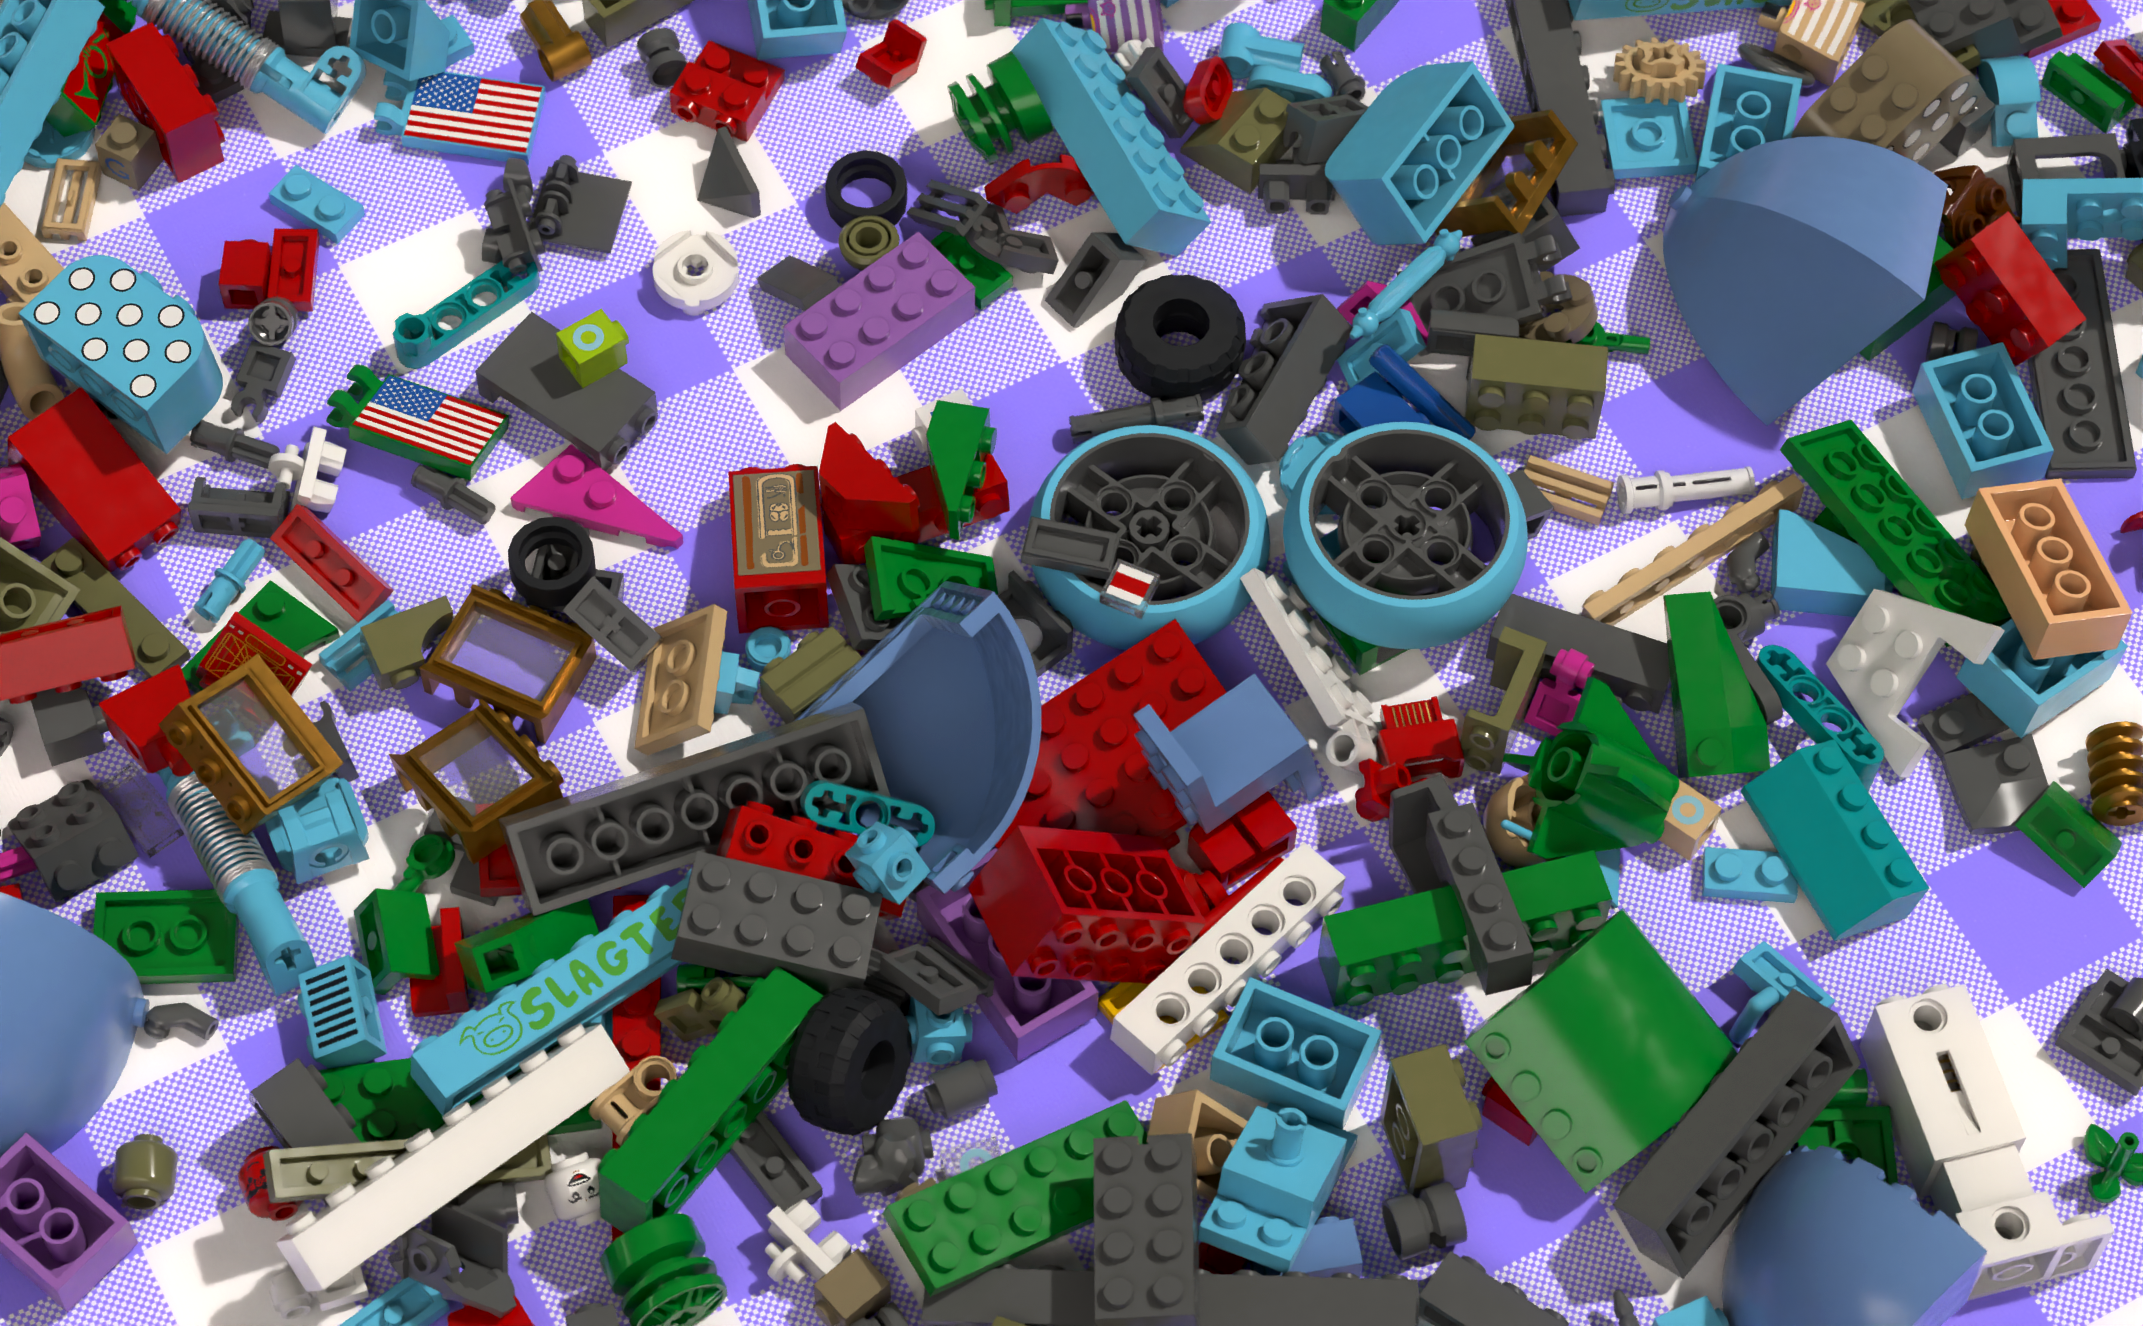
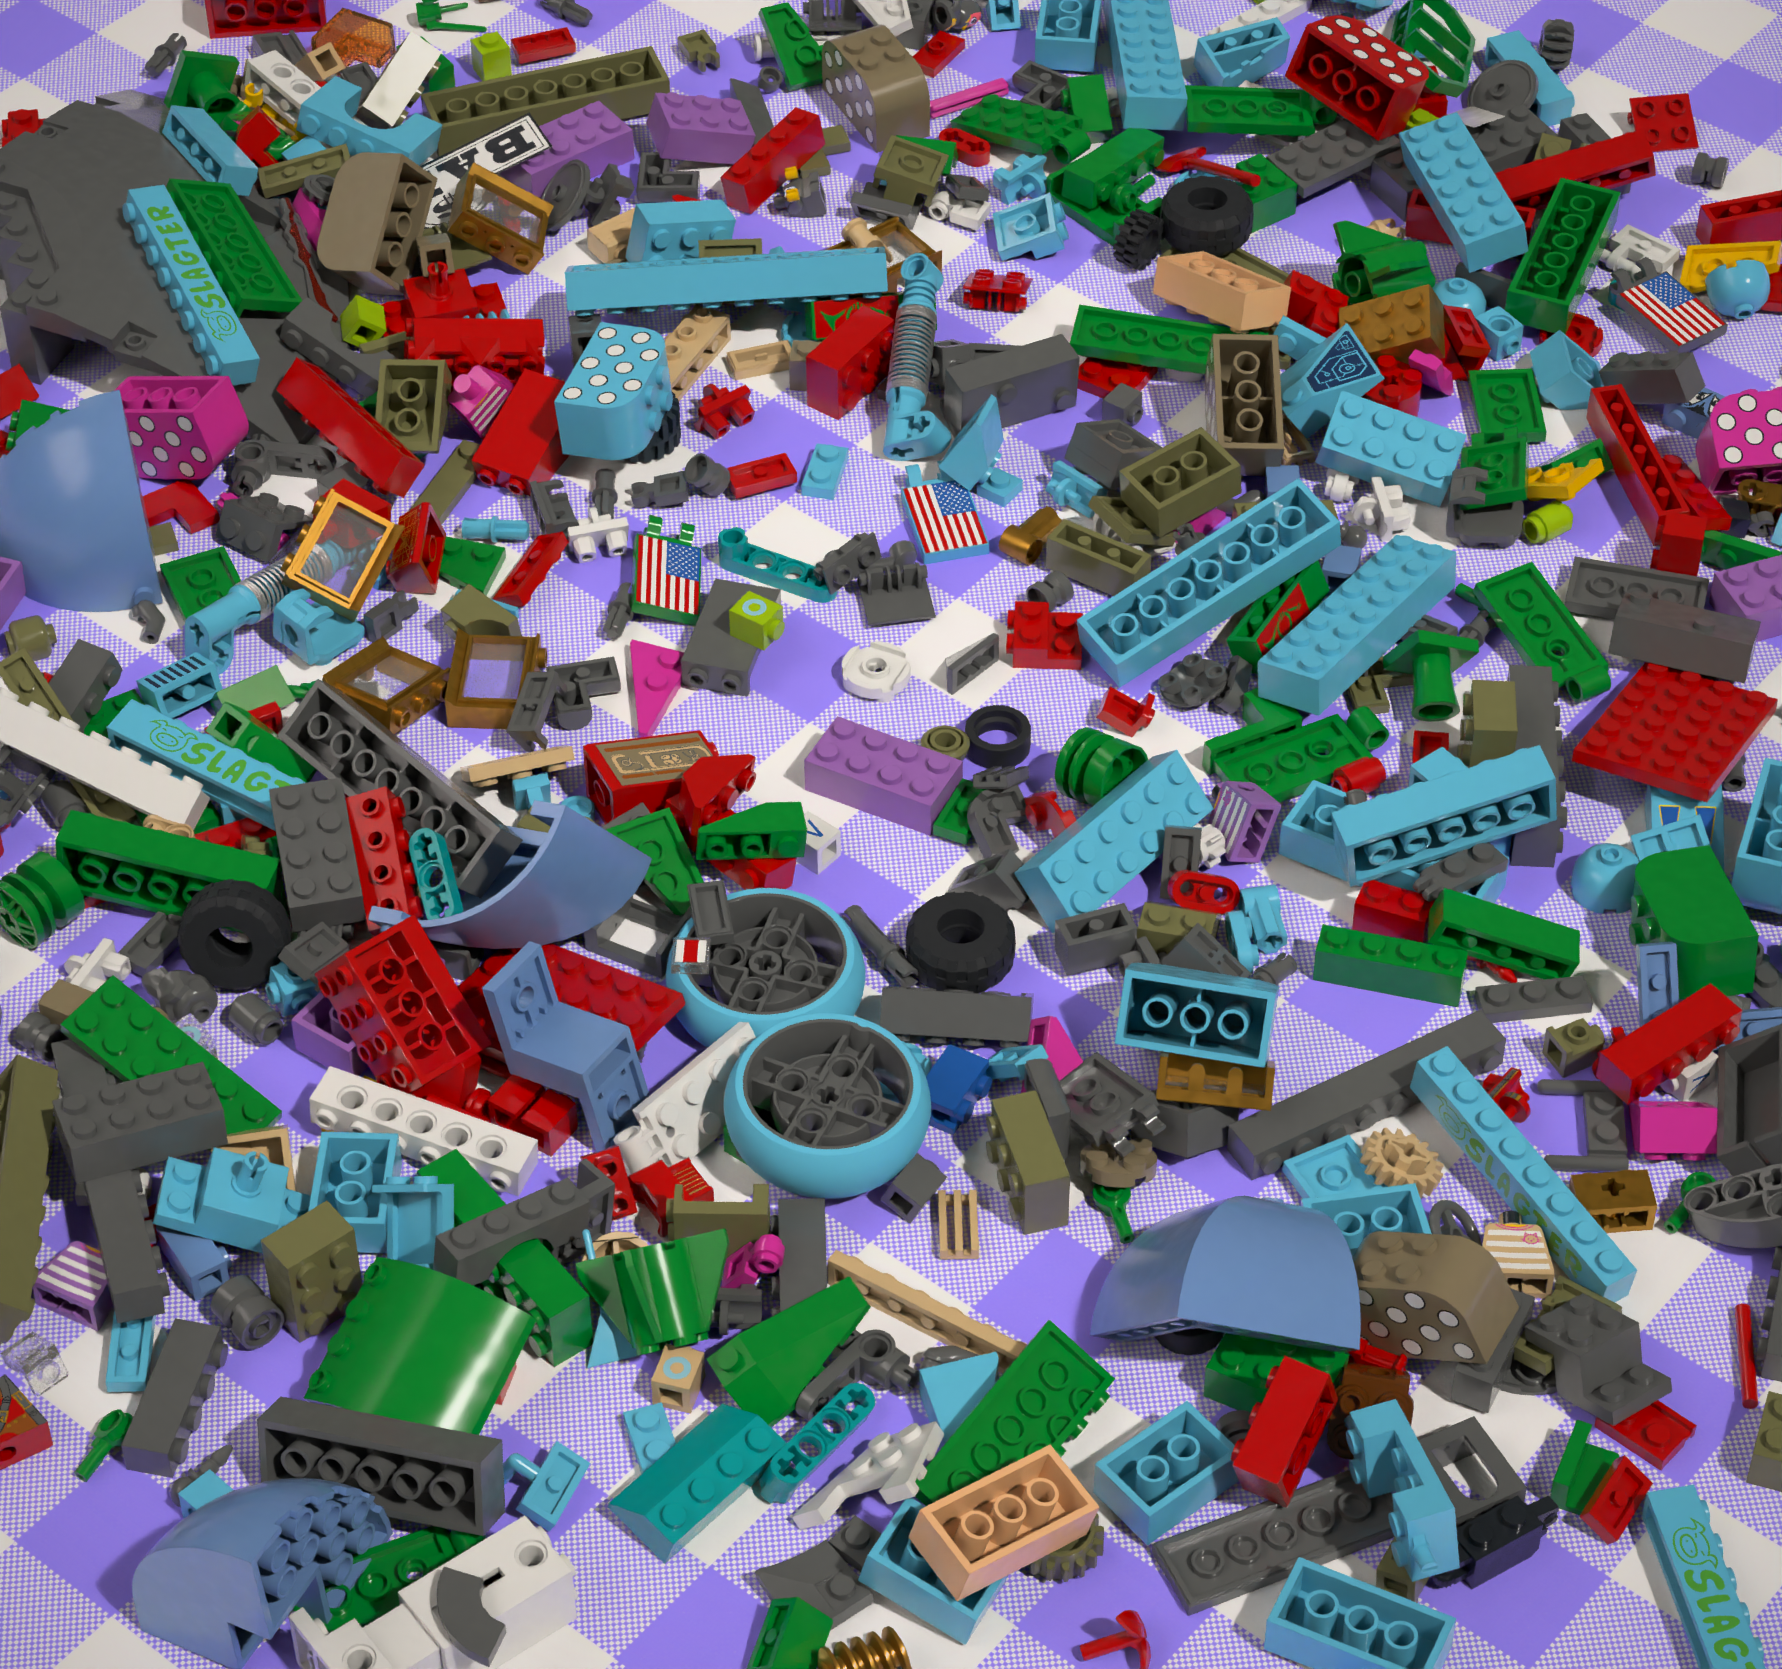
camera: 70 degrees right, 15 degrees down
(151, 256) = (721, 404): none -> red hips
(244, 273) = (741, 447): red brick -> none
(546, 532) = (576, 644): black tyre -> none
(797, 282) = (890, 720): dark grey tile -> none
(887, 862) = (382, 882): medium azure brick -> none
(1236, 212) = (1094, 938): none -> dark grey brick
(1405, 284) = (1066, 1041): medium azure wheel -> none
(1410, 998) = (416, 1216): none -> medium azure panel
(1419, 392) = (984, 1093): blue axle -> none
(1664, 489) = (989, 1285): white pin -> none
(1999, 1101) = (465, 1618): none -> dark grey tile
(2014, 90) = (1526, 1403): medium azure brick -> none

